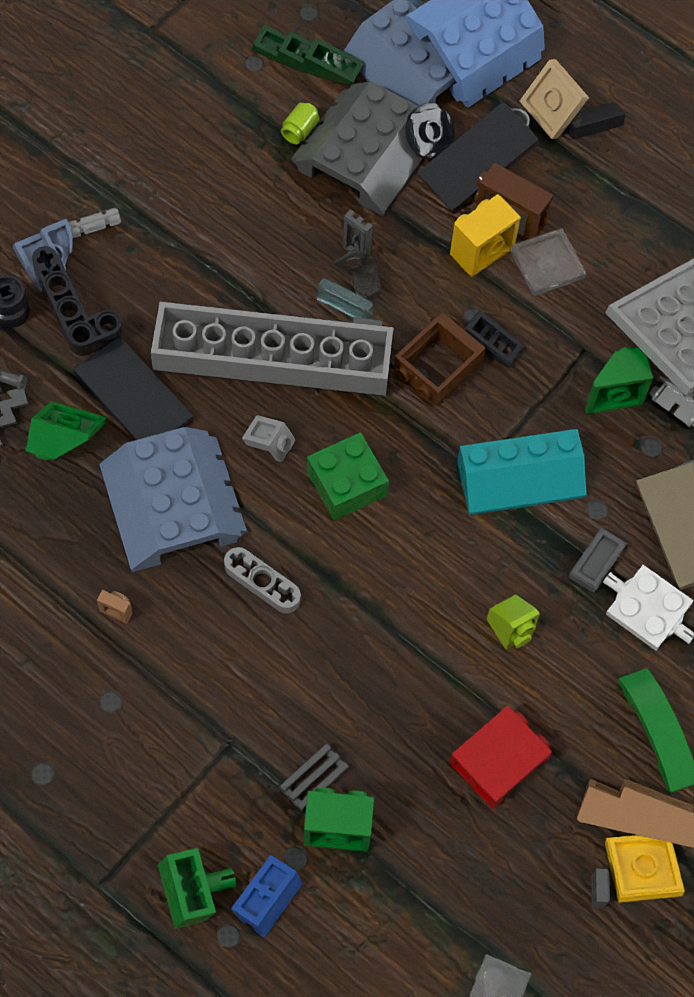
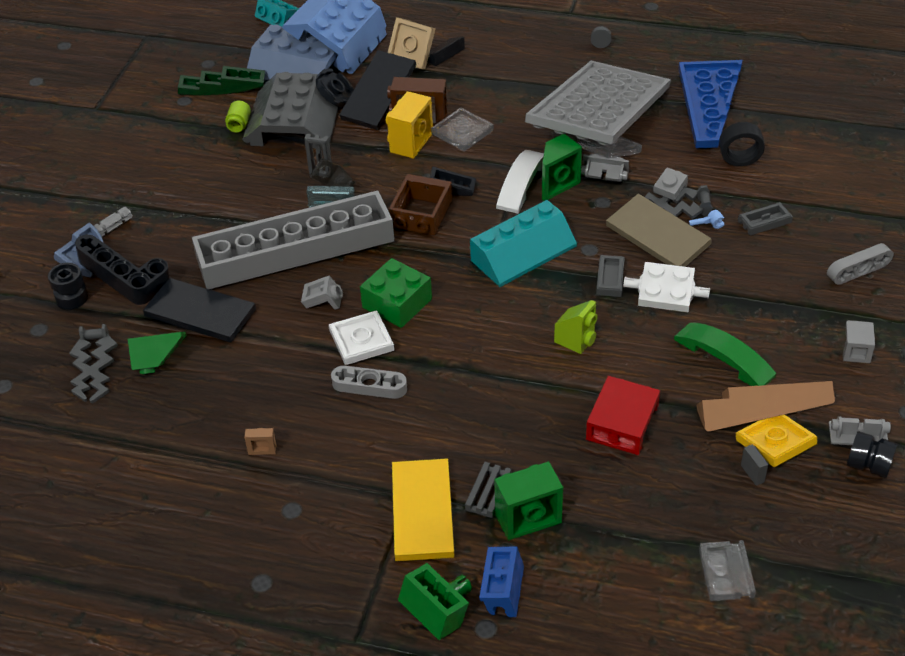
camera: 20 degrees left, 20 degrees down
(171, 495) = (261, 355): sand blue slope -> none
(236, 768) = (422, 510): none -> yellow tile
(282, 517) = (361, 337): none -> white plate
(574, 370) = (518, 180): none -> white slope

